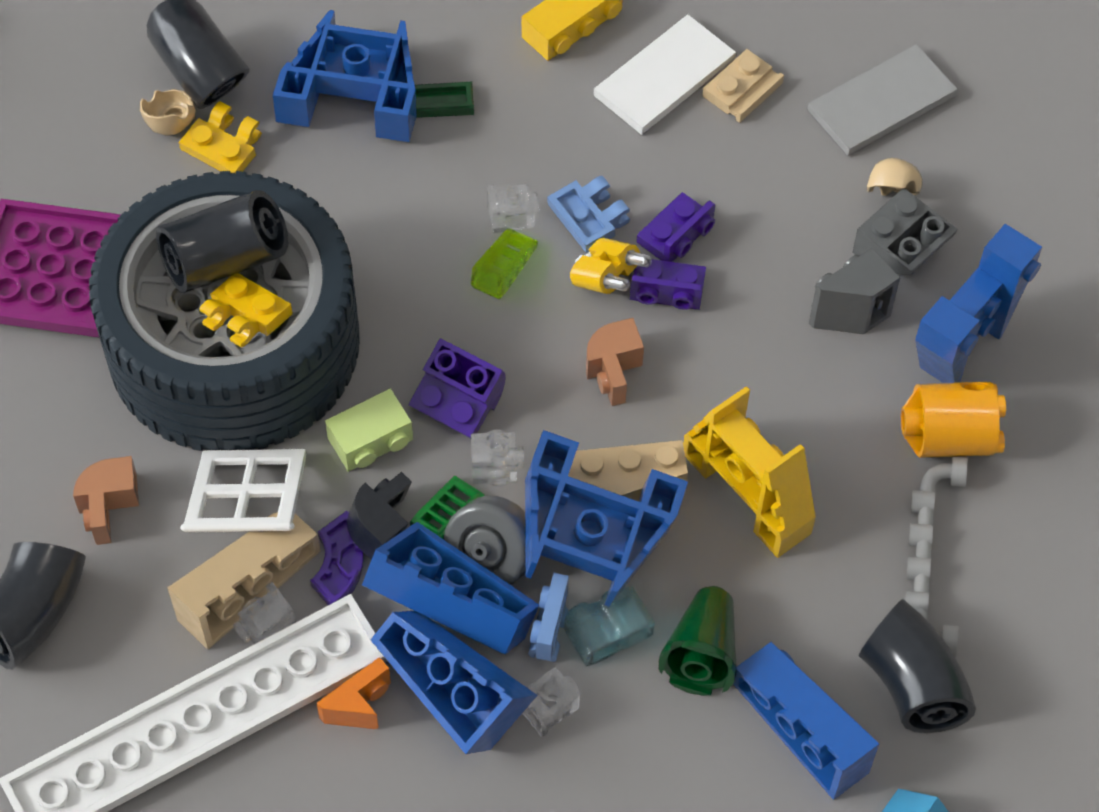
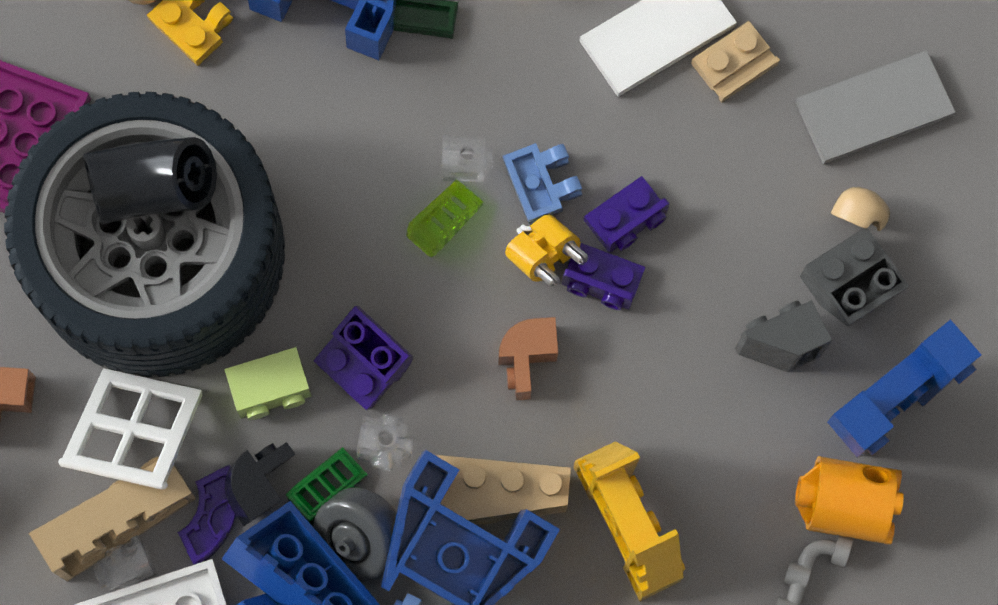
camera: 10 degrees right, 15 degrees up
(250, 304) = (165, 247): yellow plate -> none

